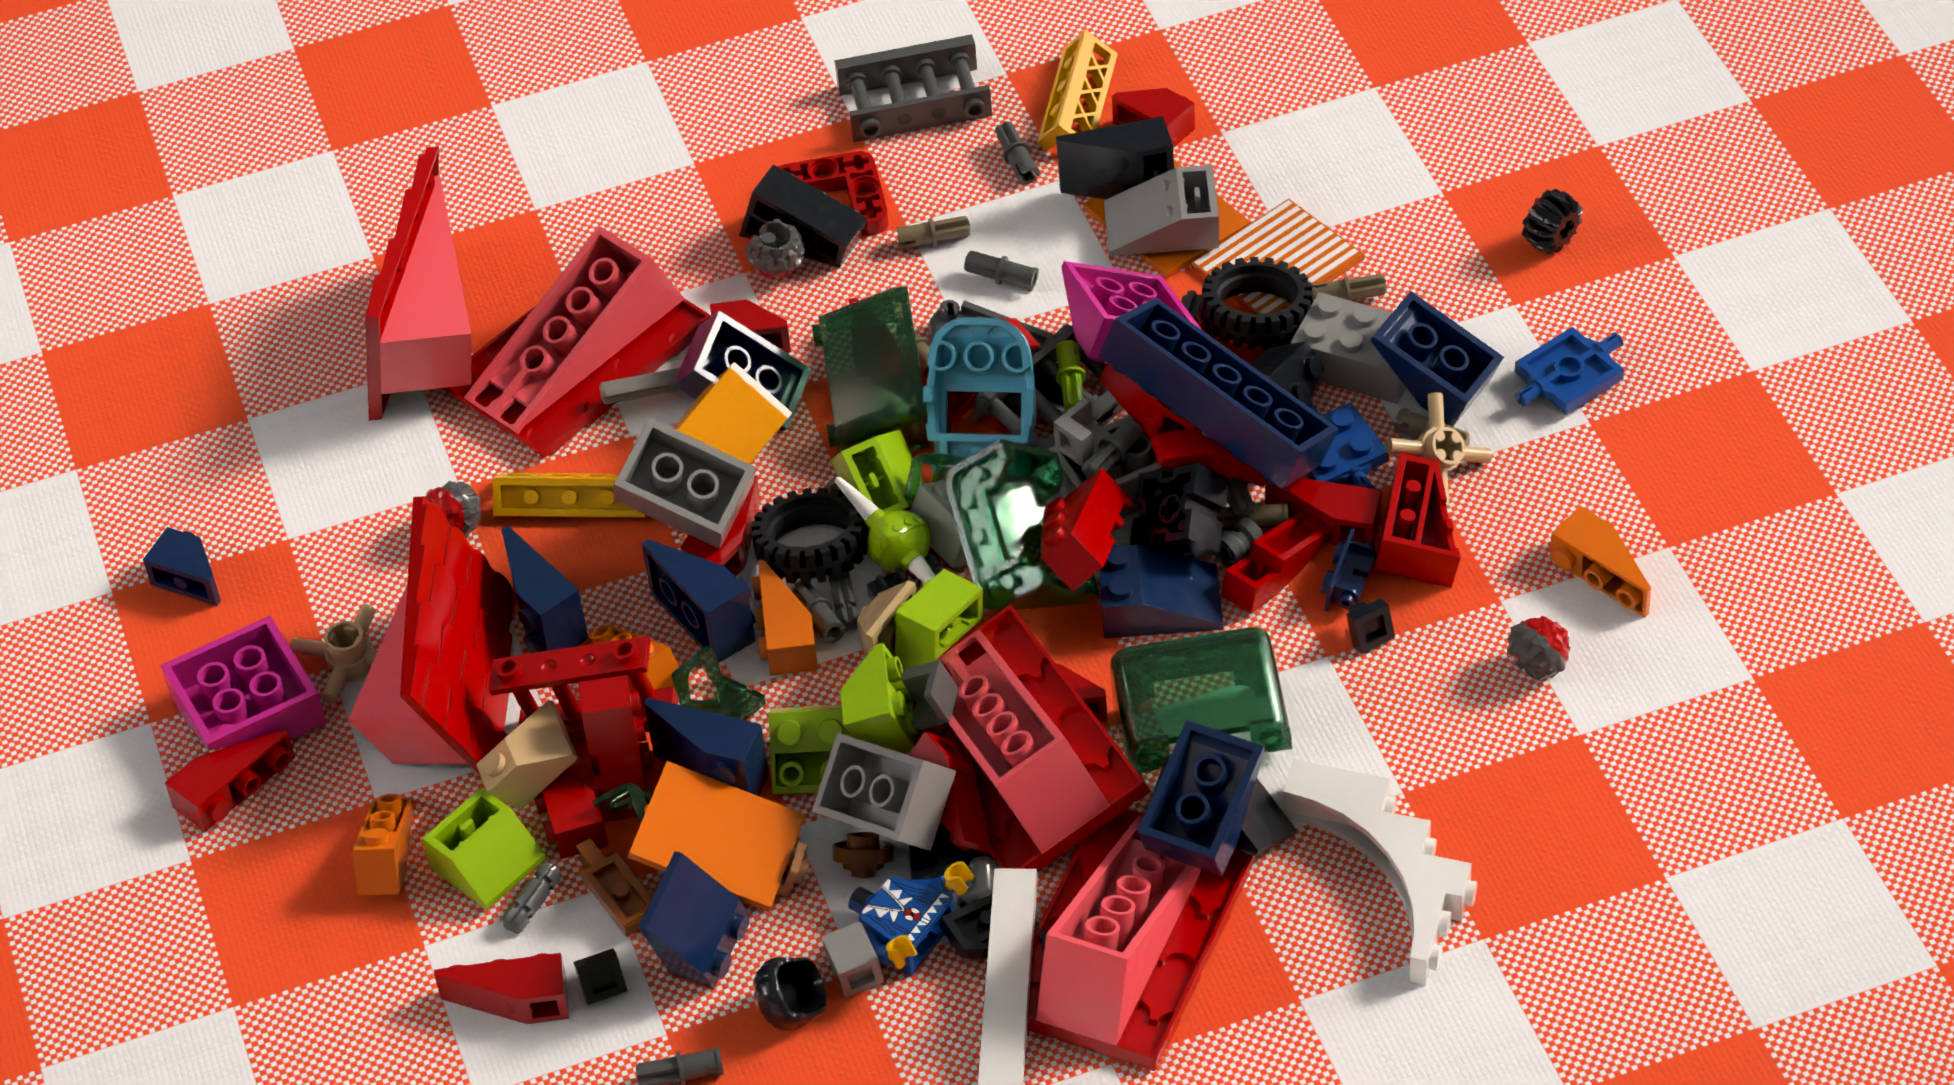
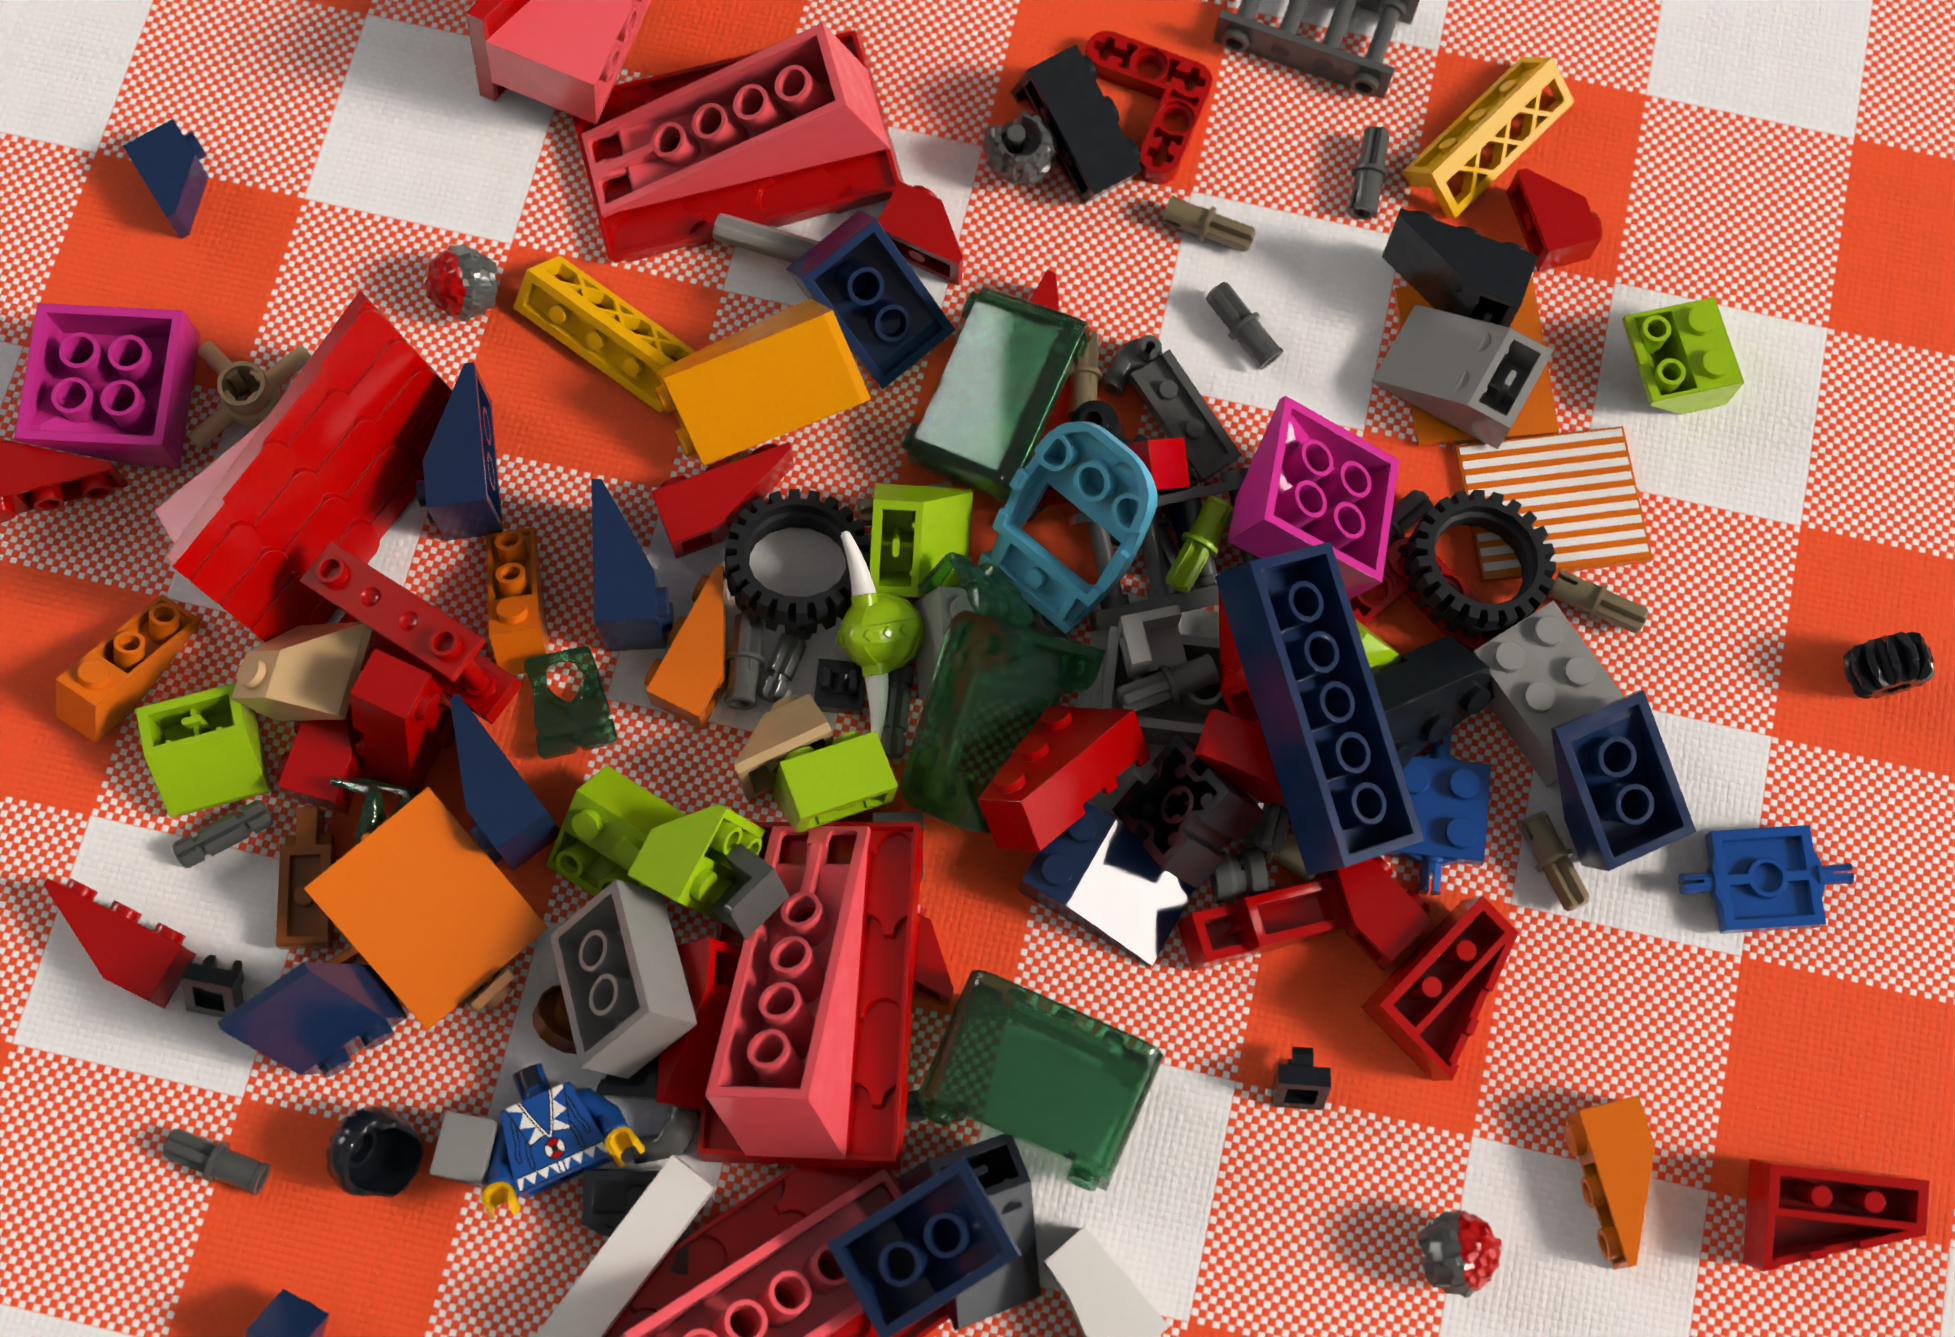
camera: 25 degrees right, 25 degrees up
(684, 483) = (679, 433): light grey brick -> none
(1299, 136) = (1684, 356): none -> lime slope
(1342, 584) = (1312, 1007): dark blue hinge -> none
(1439, 443) = (1537, 901): tan bar -> none
(1741, 501) = (1821, 1211): none -> red wedge

